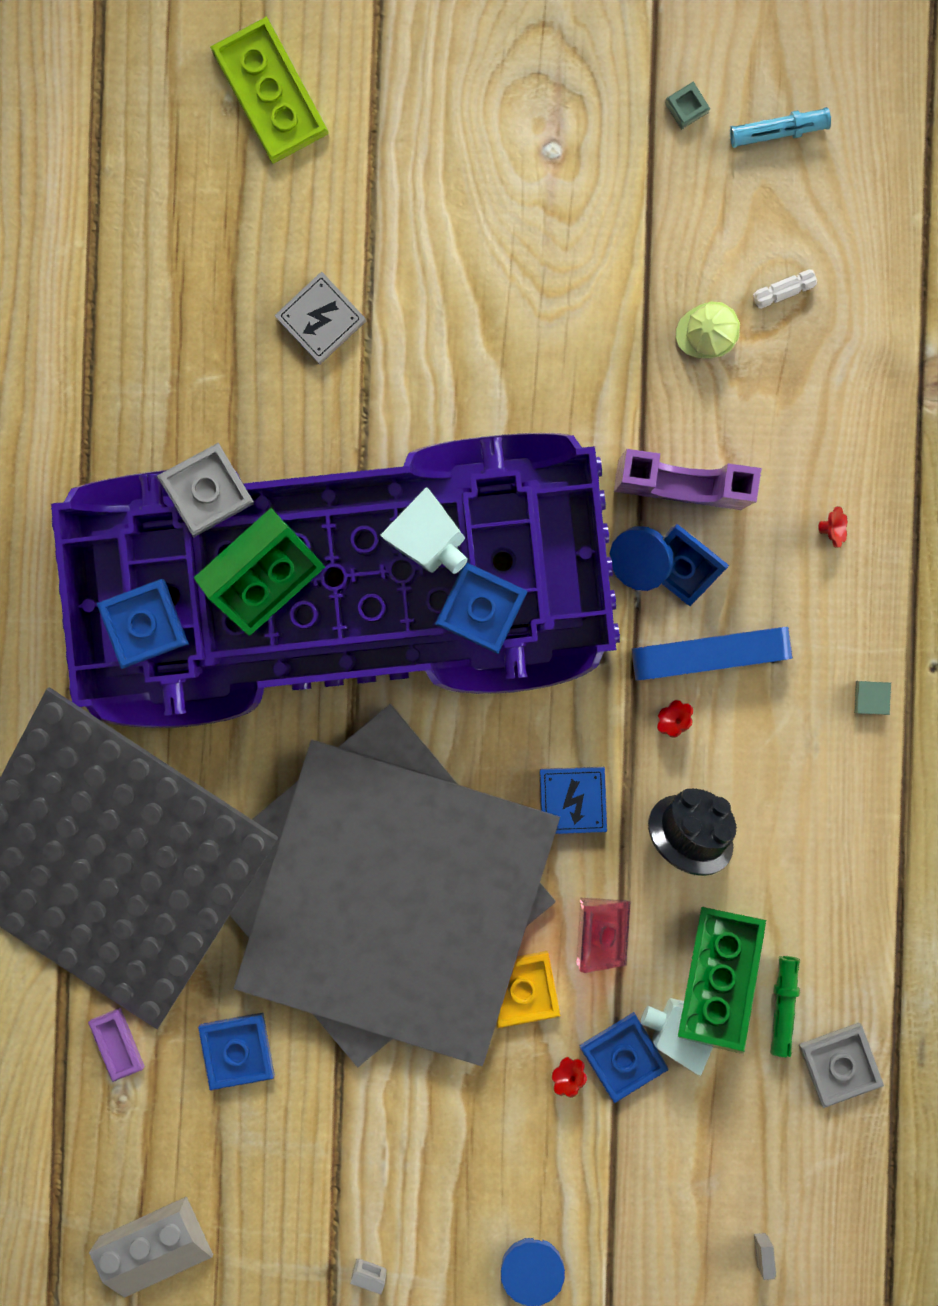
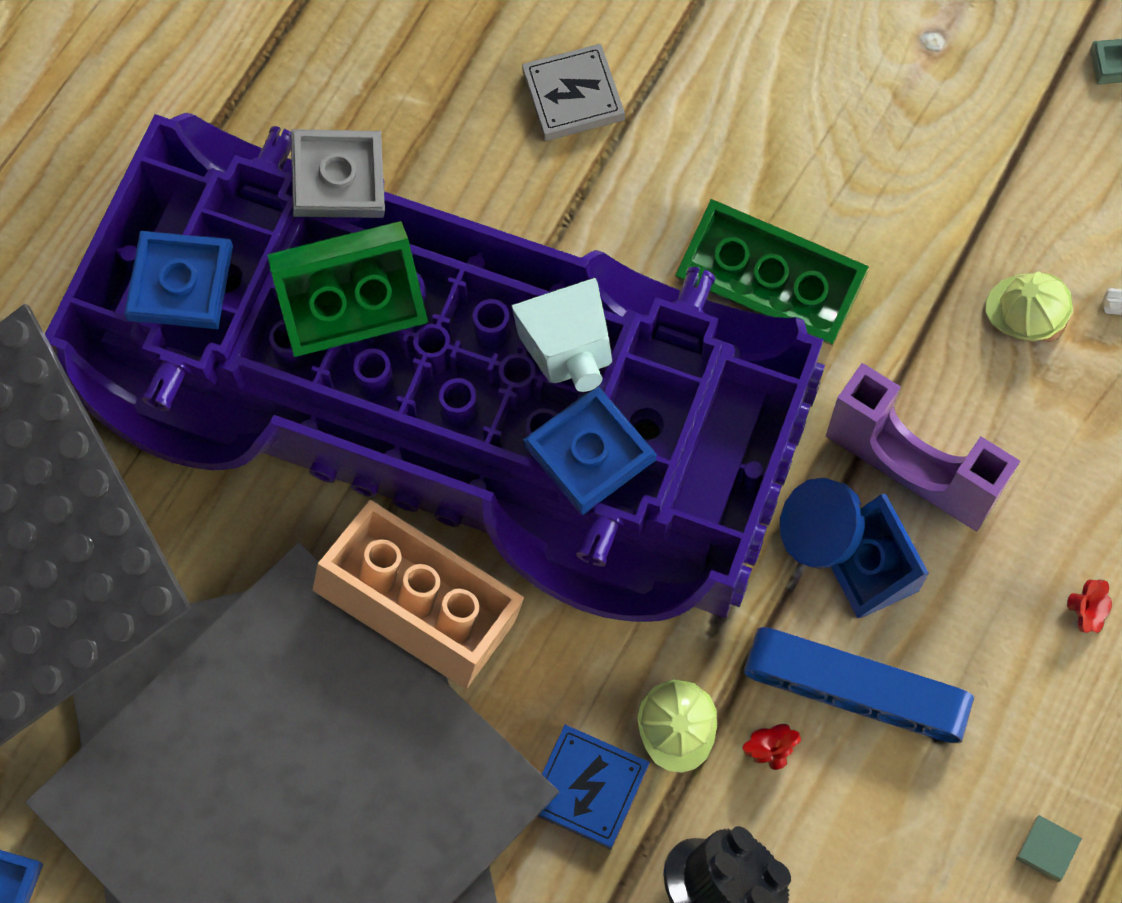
camera: 30 degrees right, 20 degrees down
(409, 741) = (417, 593): none -> light nougat brick
(524, 391) = (774, 270): none -> green slope
(610, 734) = (677, 725): none -> yellowish green piece

